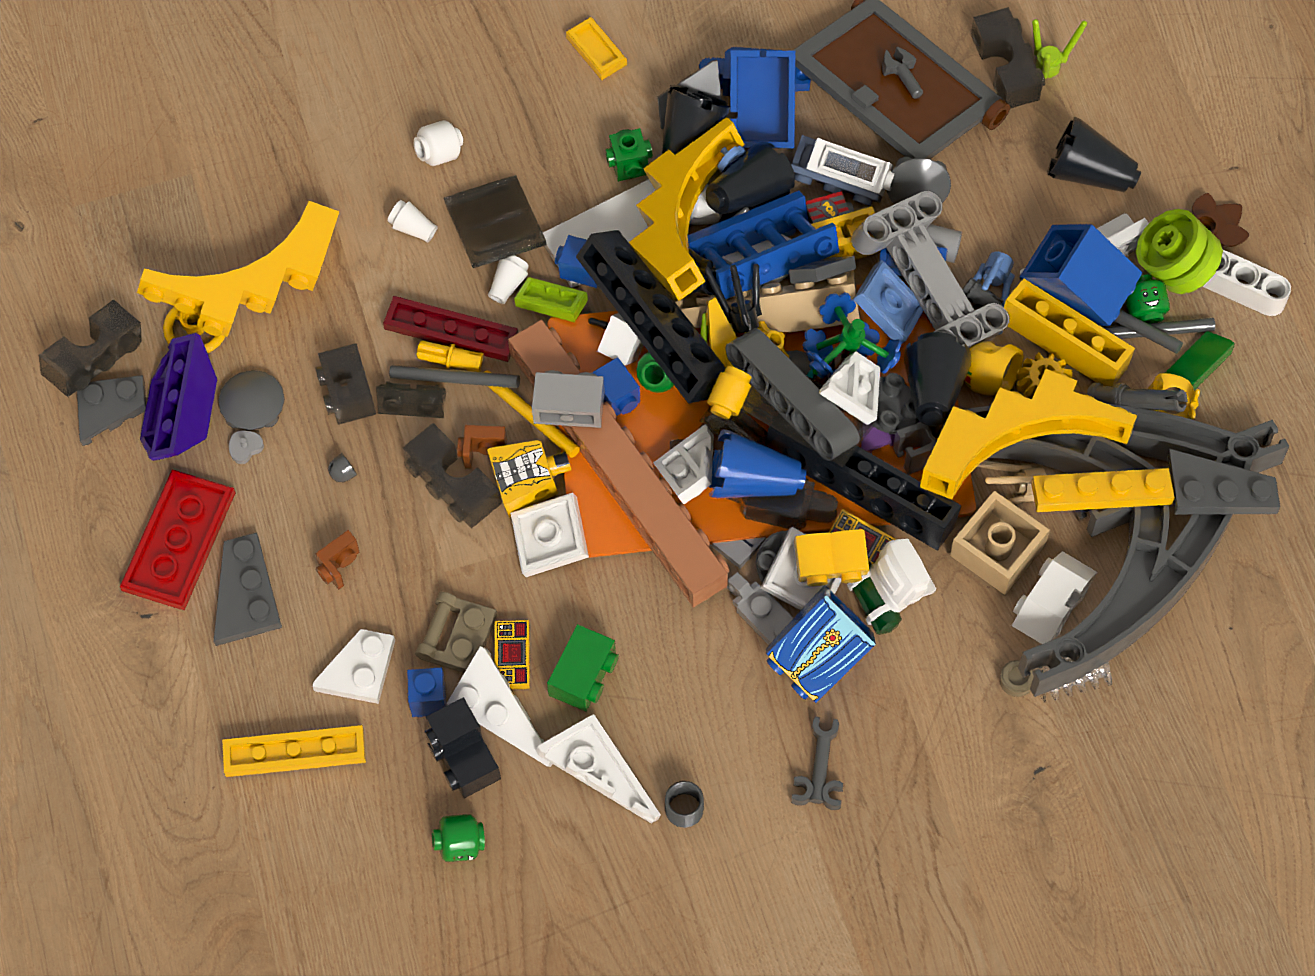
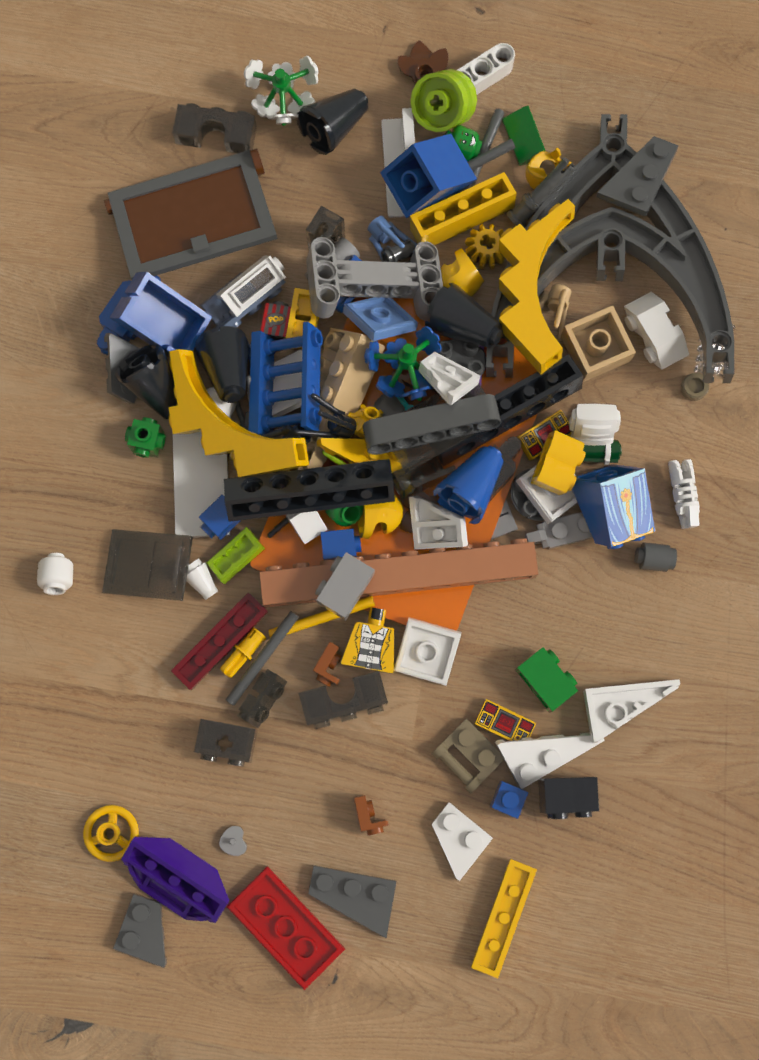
camera: 65 degrees left, 15 degrees up
(74, 366) = (103, 947): clear smoke arch -> none
(251, 400) = (198, 819): dark grey dish -> none
(255, 285) = (109, 806): yellow arch -> none
(341, 469) = (293, 777): dark grey hinge -> none
(410, 220) = (112, 626): white cone -> none
(458, 838) = (630, 830): green head -> none
(596, 48) = (34, 415): yellow tile -> none
(676, 414) = (388, 514): none -> yellow helmet
(680, 788) = (693, 657): dark grey piece -> none
(729, 392) = (409, 468): yellow brick -> none
(730, 157) = (201, 366): medium blue piece -> none
(788, 723) = (656, 557): none -> dark grey brick
(818, 790) = (710, 562): dark grey bar -> none
(822, 269) = (334, 350): dark grey tile -> none
(881, 721) = (684, 492): none -> white hinge
(901, 68) = (188, 206): dark grey bar -> none
(918, 176) = (289, 244): dark grey dish -> none
(957, 205) = (325, 225): none -> clear smoke hinge
(1049, 57) = (231, 99): lime plant -> none
(1094, 87) = (282, 82): none -> white plant
(1102, 490) = (605, 253): yellow plate -> none

